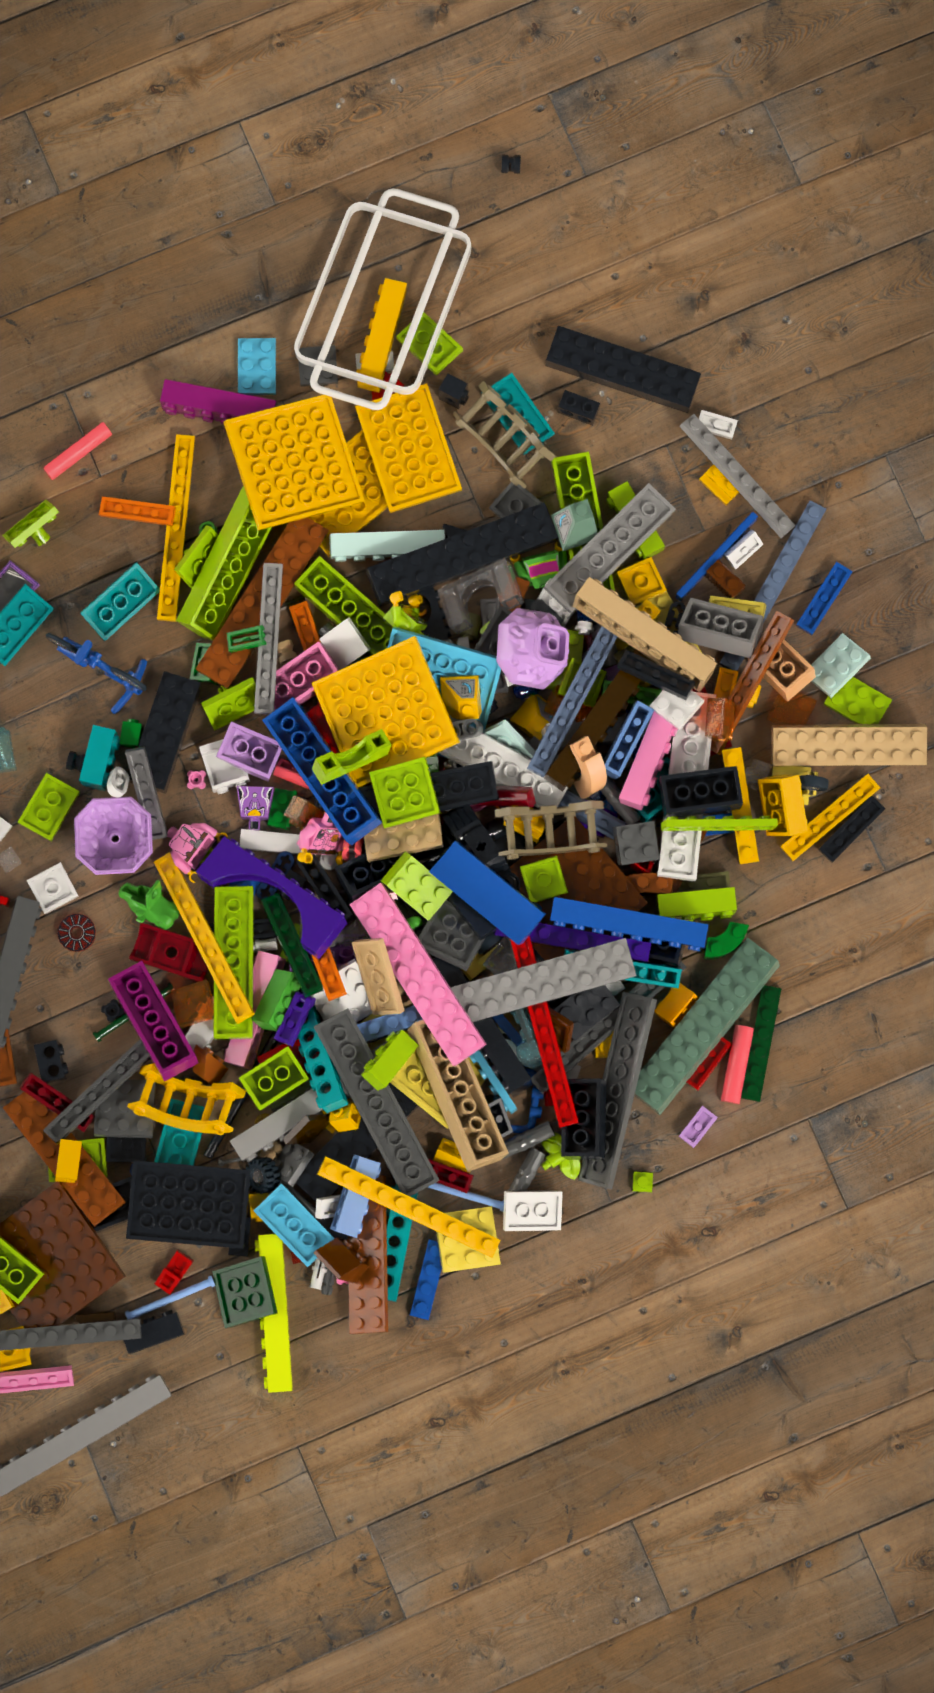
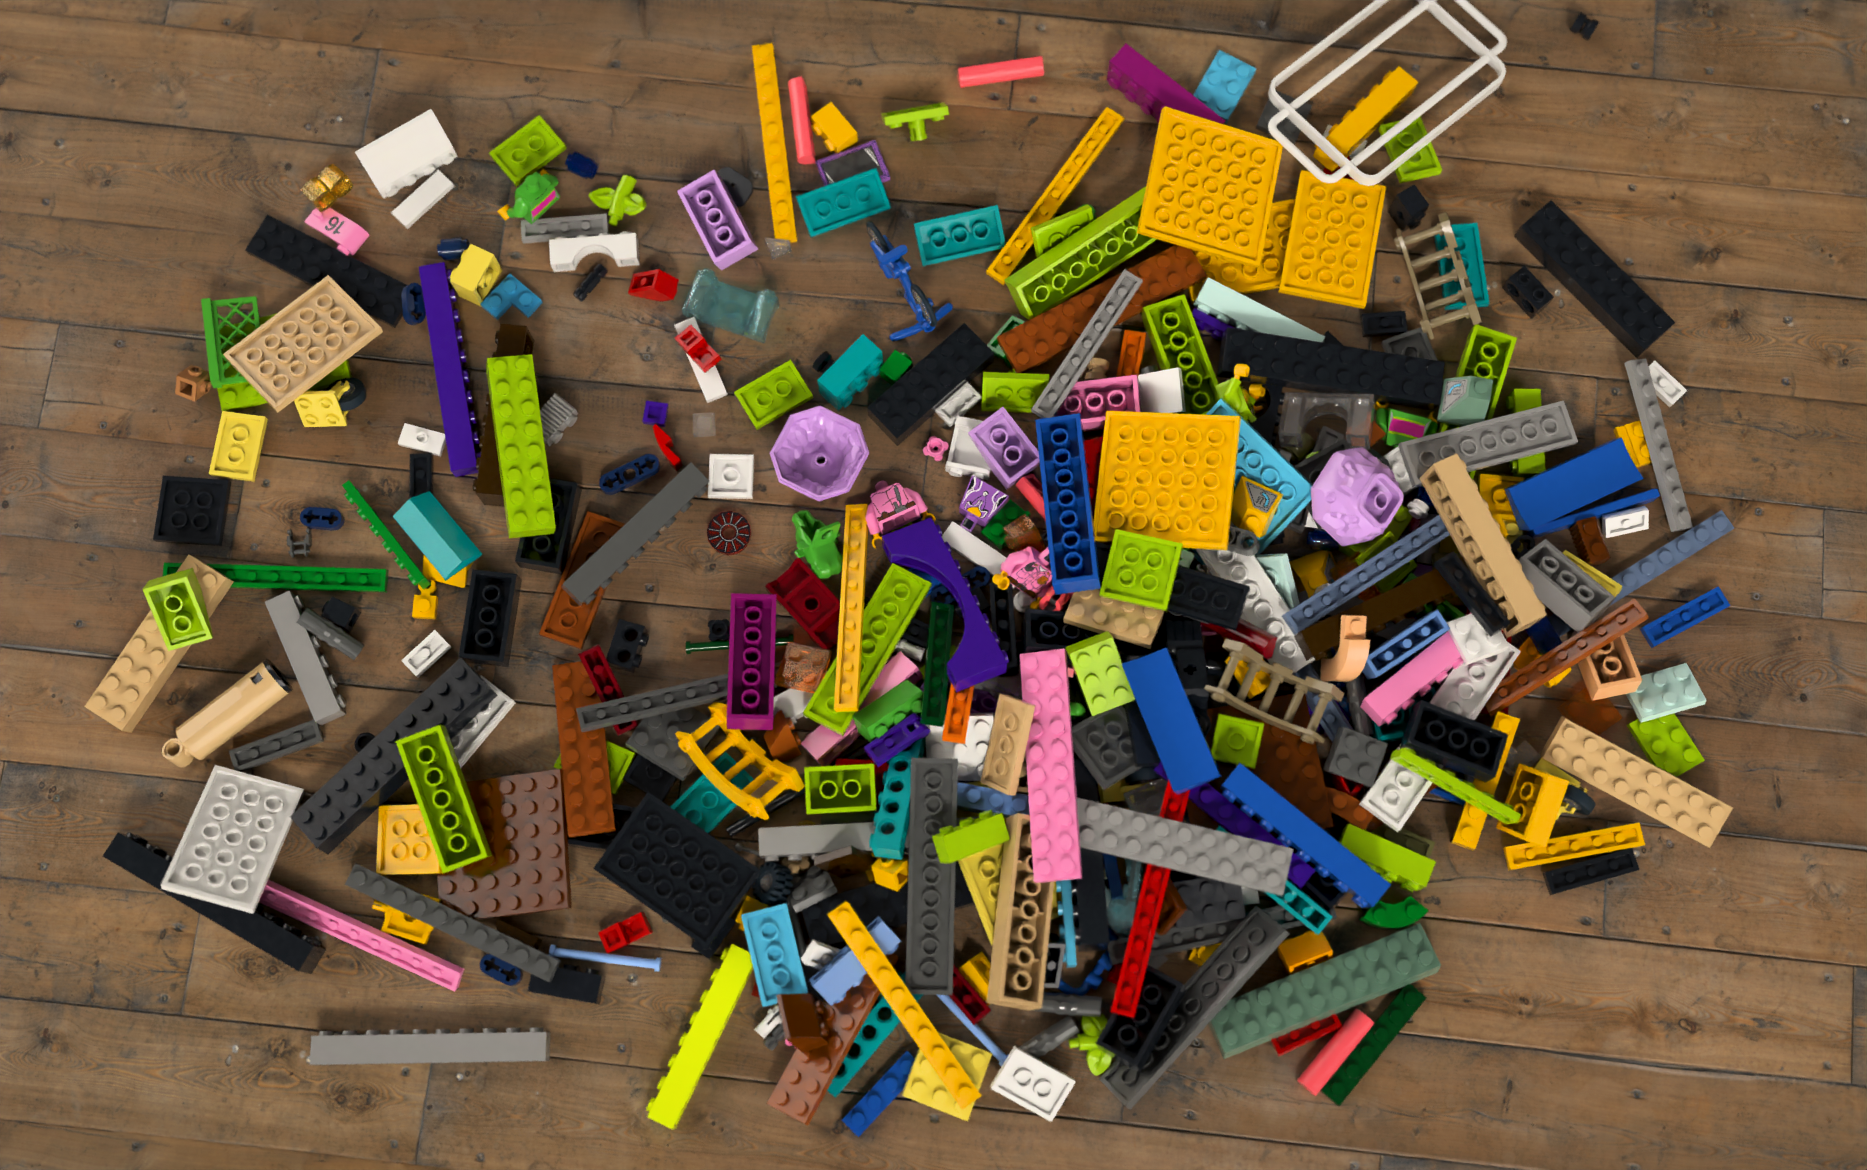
camera: 30 degrees right, 5 degrees down
(68, 1161) = (581, 754): yellow hinge -> none
(98, 1356) = (498, 975): none -> dark blue beam
(117, 782) = (854, 404): white plate -> none
(137, 511) = (1026, 158): orange plate -> none
(146, 789) = (878, 428): flat silver plate -> none
(194, 735) = (958, 404): none -> white plate
(245, 1292) = (684, 996): dark green plate -> none
(260, 636) = (1063, 336): green tile -> none
(337, 764) = (1131, 505): lime arch -> none
(359, 567) = (1209, 324): none -> dark purple plate
(483, 492) = (1383, 323): none -> black plate
(642, 1182) = (1166, 1120): lime plate -> none
(689, 543) = (1572, 484): none -> blue arch
(698, 1127) = (1258, 1095): lavender plate -> none
(719, 719) = (1513, 677): clear orange brick -> none
(726, 670) = (1543, 636): none -> clear blue plate

